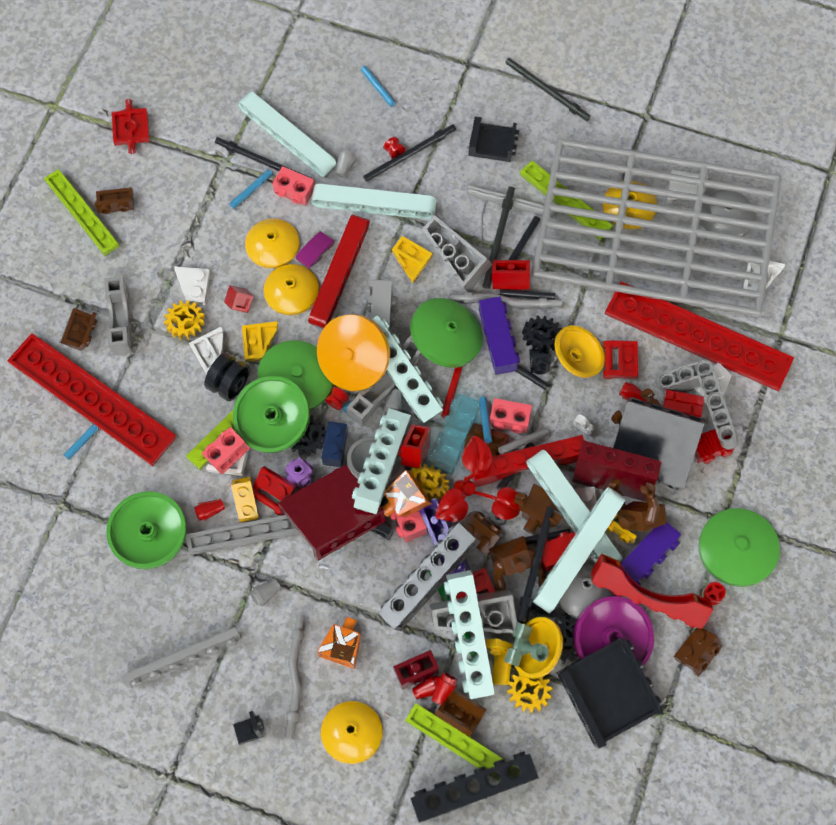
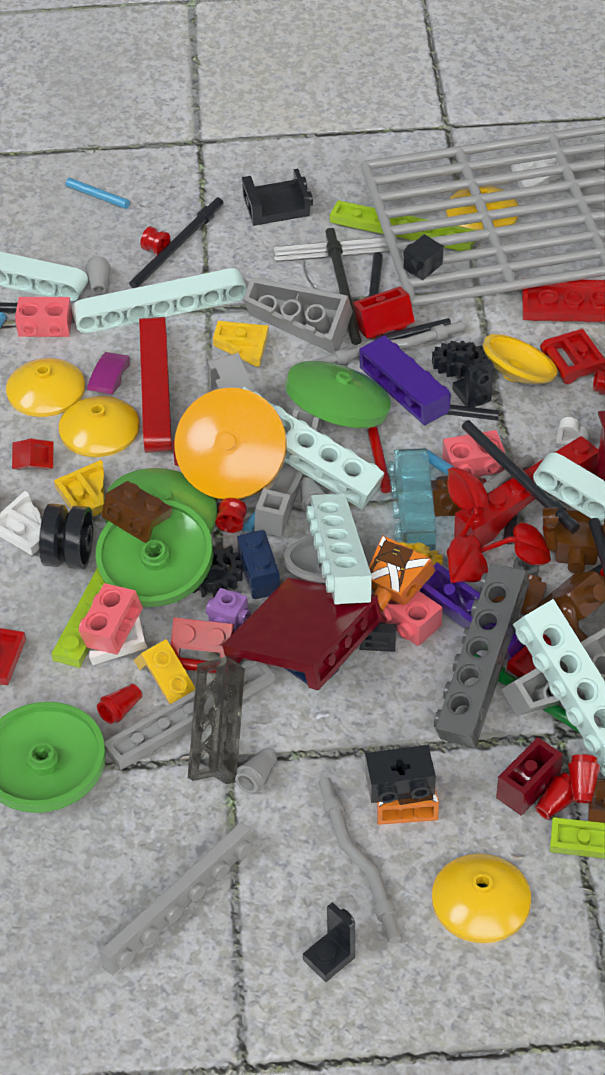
camera: 25 degrees left, 20 degrees down
(257, 551) = (223, 717): none -> clear smoke fence
(269, 383) = (134, 510): none -> reddish brown bracket
(329, 632) = (400, 774): none -> black brick
(415, 446) = (371, 521): red brick -> none
(530, 489) = (520, 476): none -> black bar
(554, 243) = (423, 257): none -> black brick
(574, 108) = (356, 142): pearl dark grey bar -> none

